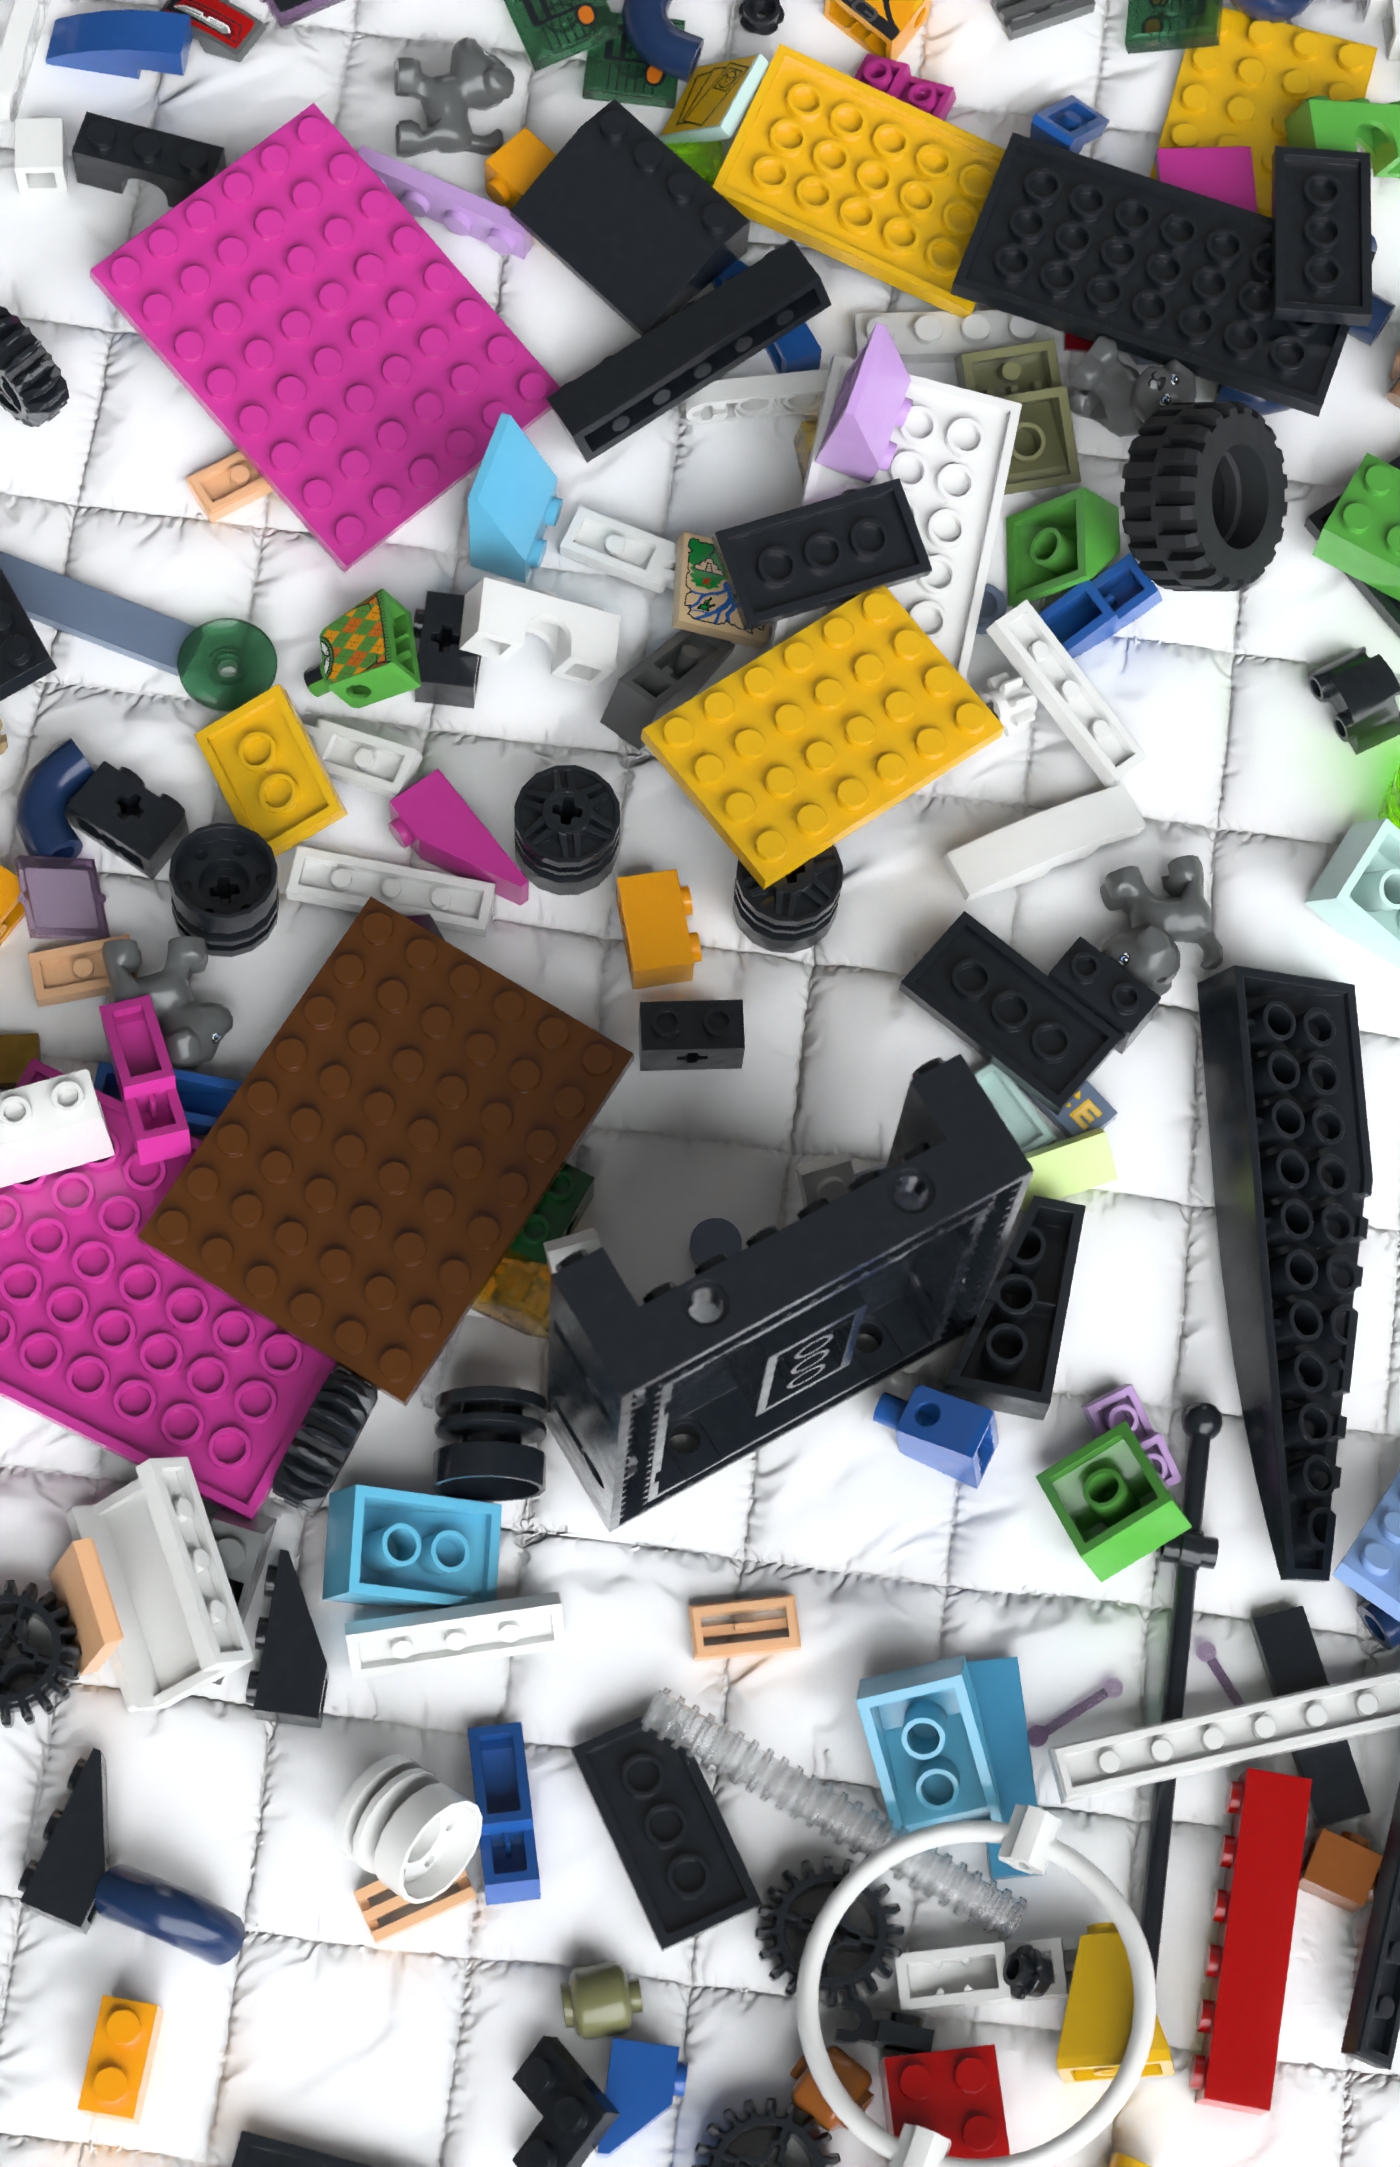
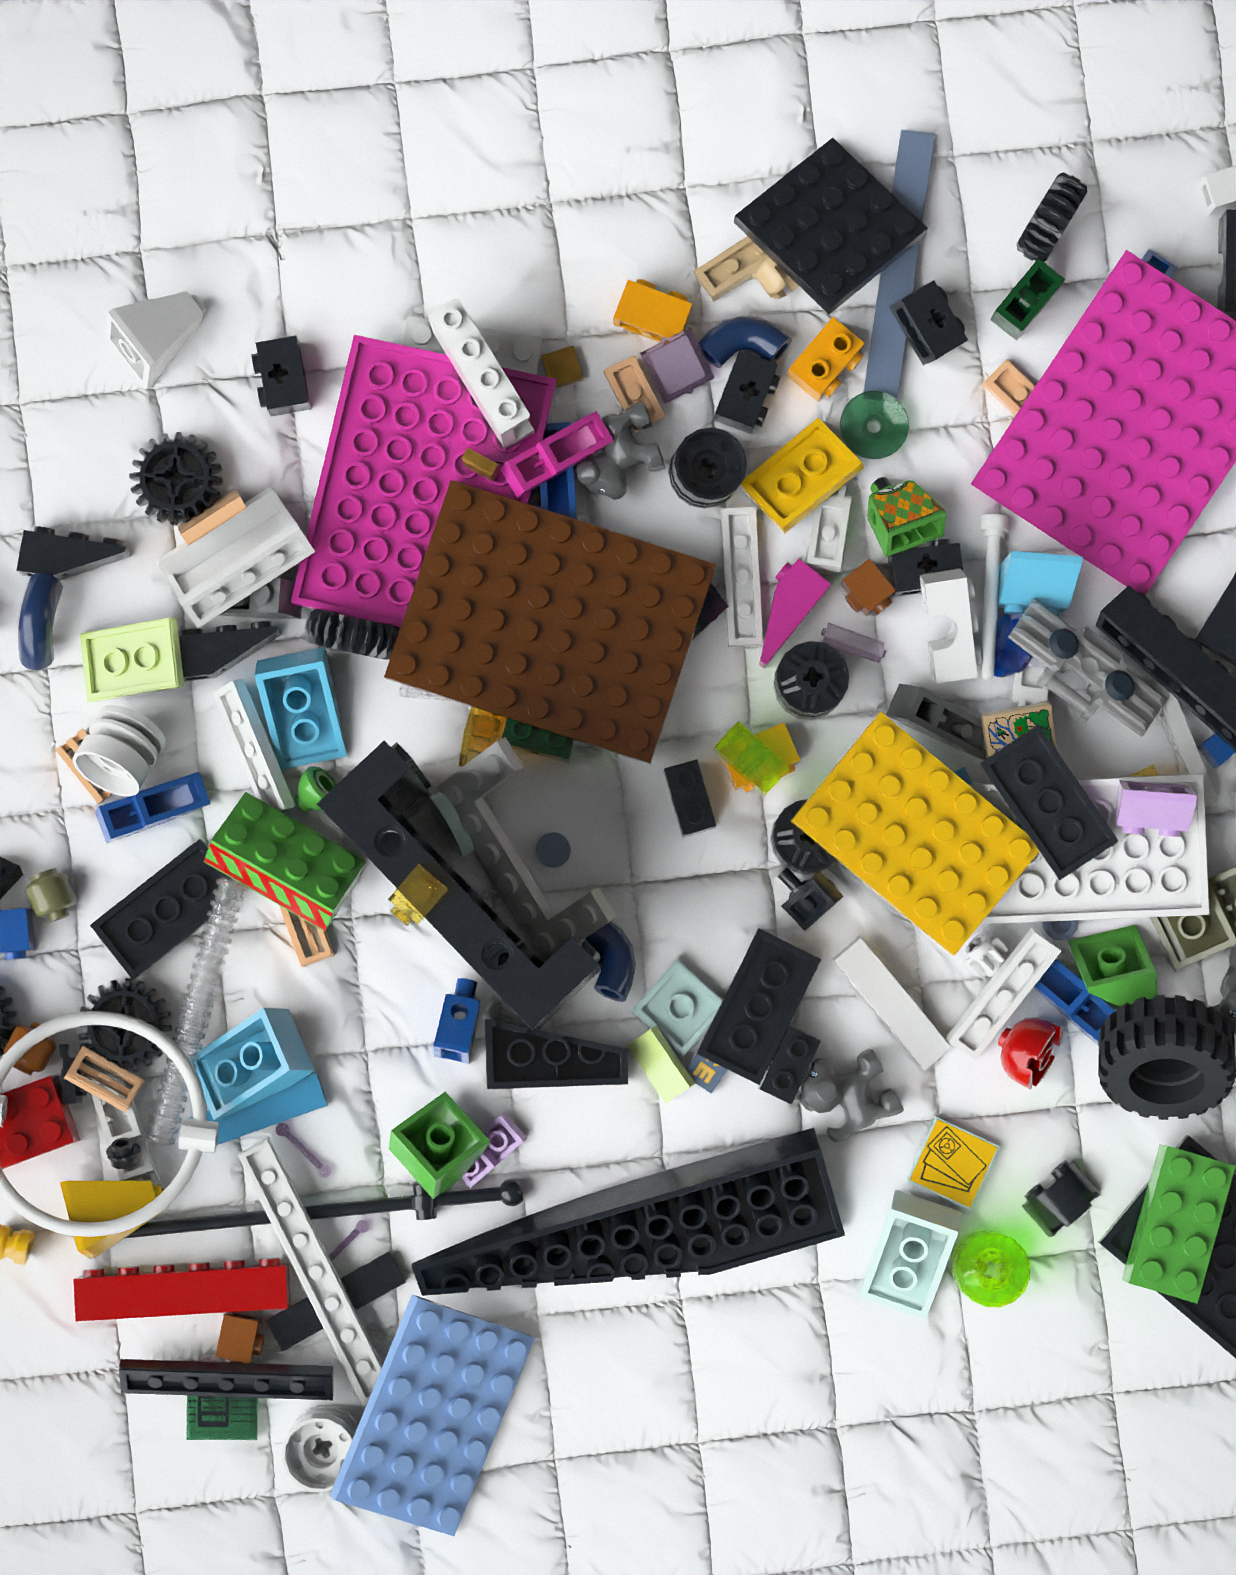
camera: 80 degrees right, 15 degrees up
(106, 557) = (913, 315): none -> black brick
(114, 426) = (1027, 299): none -> dark green brick
(116, 704) = (826, 360): none -> light orange brick
(128, 1185) = (480, 464): none -> pearl gold tile
(270, 1785) = (132, 660): none -> yellowish green tile
(418, 551) = (994, 531): none -> white piece
(456, 730) = (867, 589): none -> dark orange brick
(490, 1444) = (365, 734): black wheel -> none
(528, 762) = (853, 642): none -> clear purple piece
(544, 1557) = (313, 787): none -> bright green brick
(585, 564) = (1008, 656): none -> clear blue plate
(640, 1621) = (284, 861): none -> bright green brick
(650, 452) = (1092, 658): none -> light grey piece
(661, 923) = (751, 759): none -> clear neon green brick
(800, 1283) = (416, 896): none -> clear yellow bracket
(875, 905) = (808, 898): none -> black plate
(903, 2010) = (97, 1090): none -> light nougat tile
(1148, 681) = (1029, 1049): none -> red cylinder
(1281, 823) = (952, 1163): none -> yellow tile

